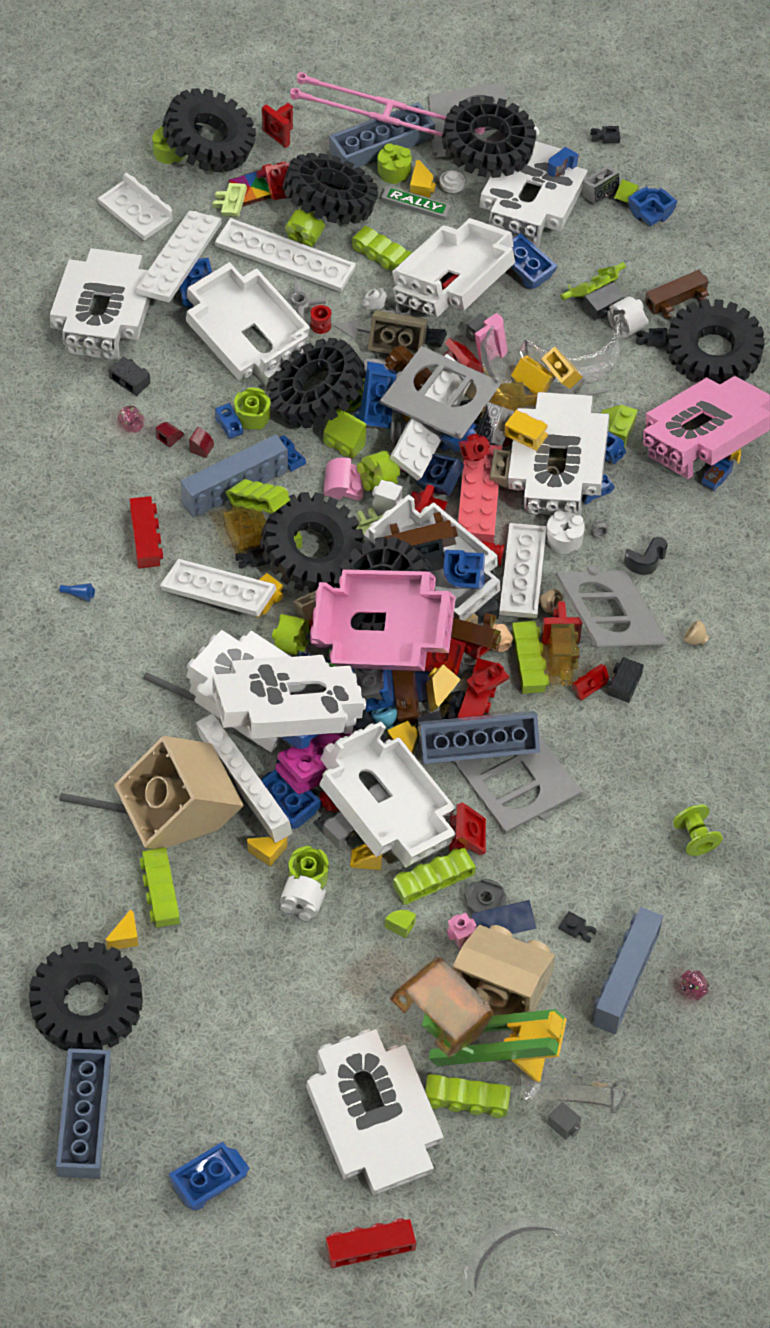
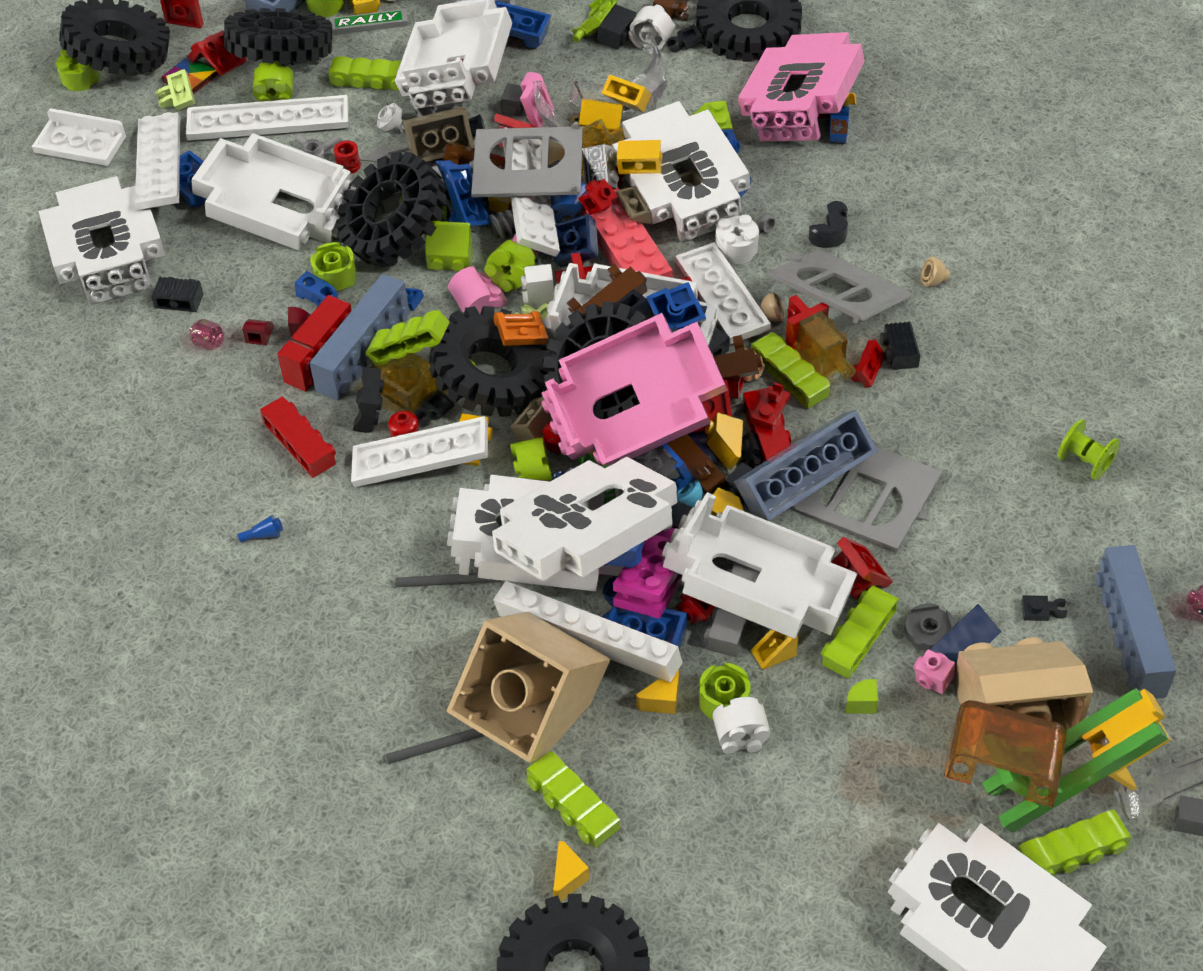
camera: 25 degrees left, 5 degrees down
(196, 460) = (313, 333): none -> red piece
(208, 530) = (369, 400): none -> black brick
(222, 560) = (403, 423): none -> red head
(343, 531) = (521, 328): none -> orange plate

